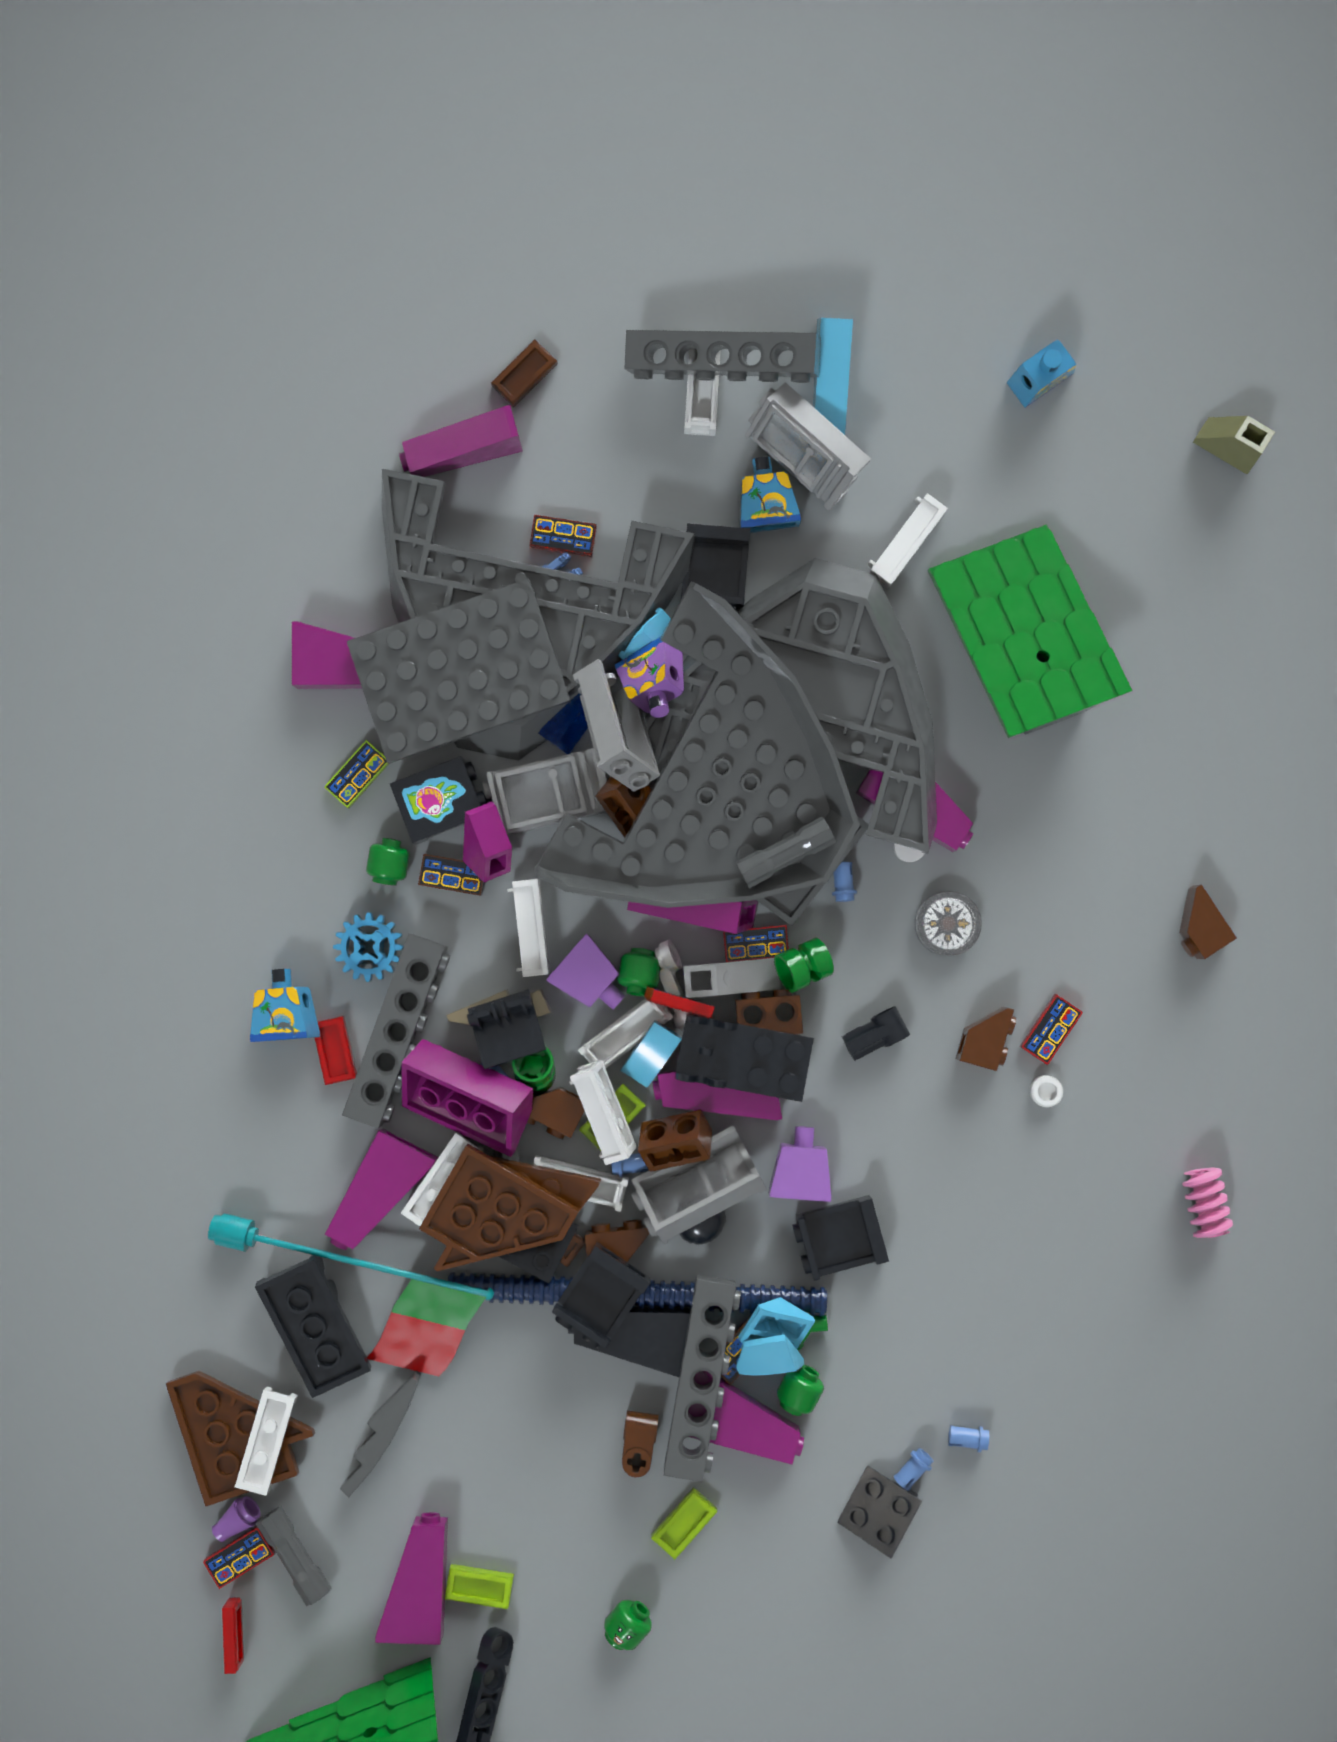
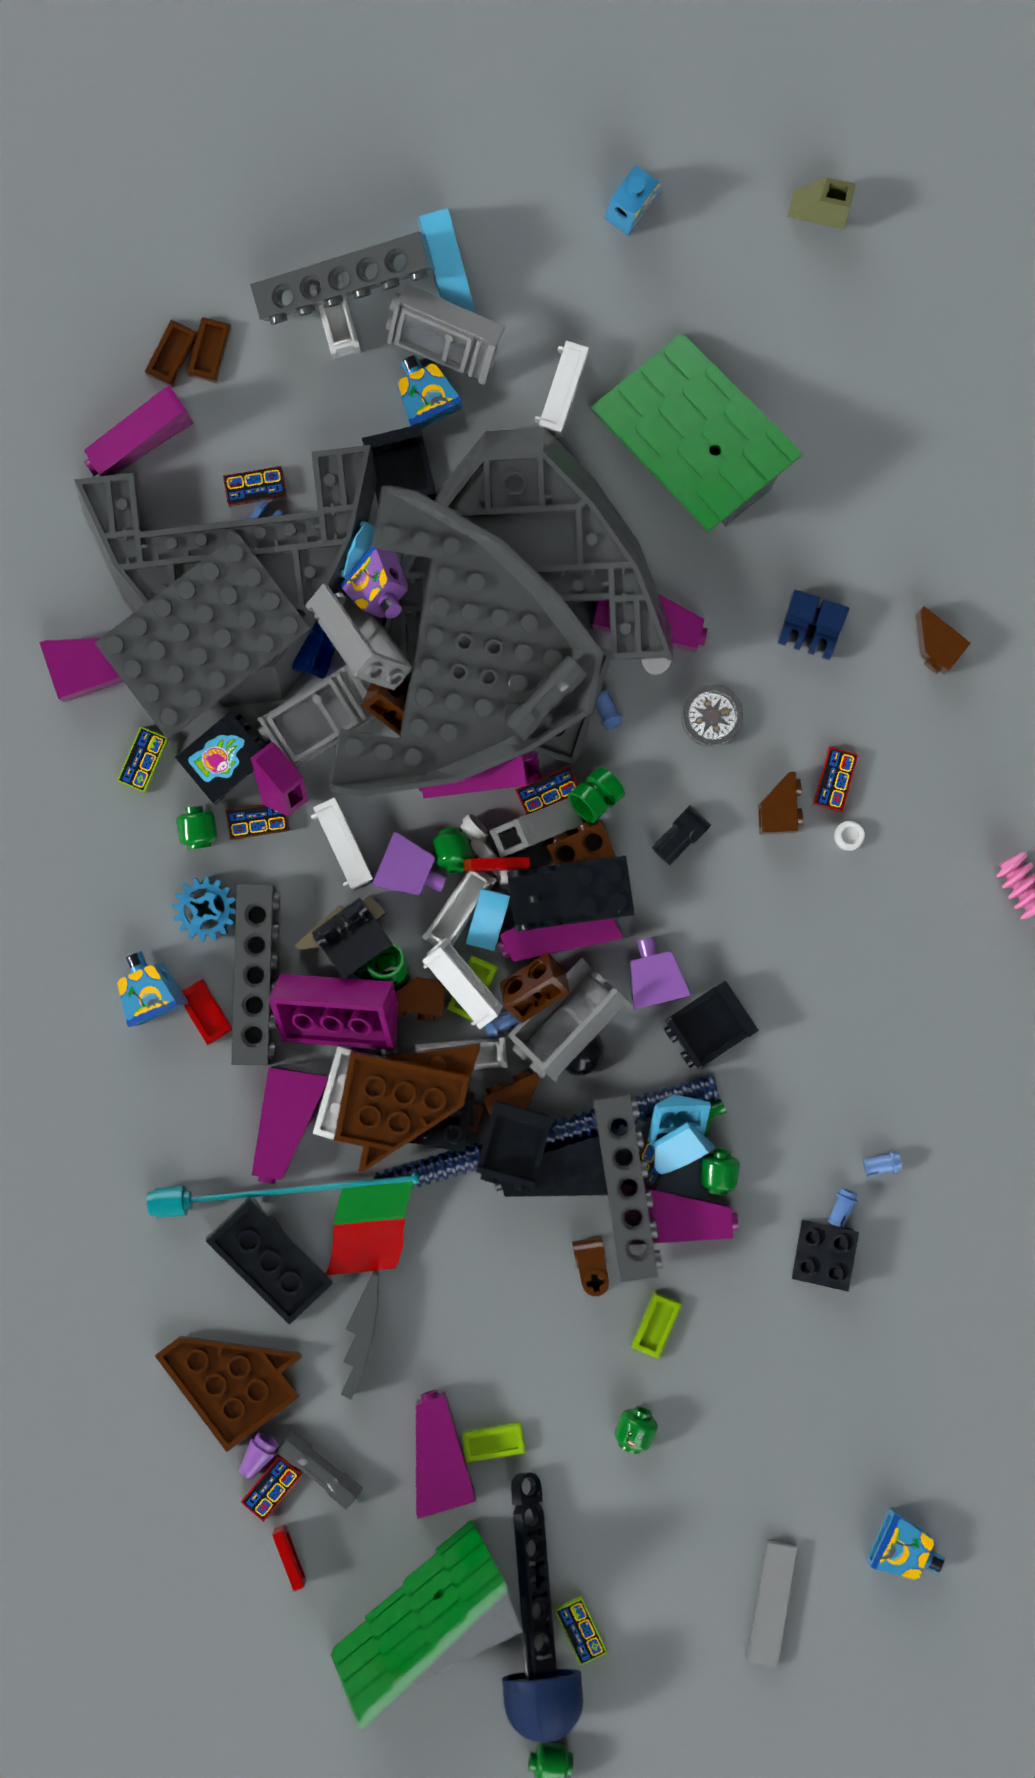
camera: 20 degrees left, 0 degrees up
(265, 1441) = (260, 1374): white container -> none
(563, 383) = (209, 350): none -> reddish brown tile
(1097, 863) = (803, 612): none -> dark blue legs

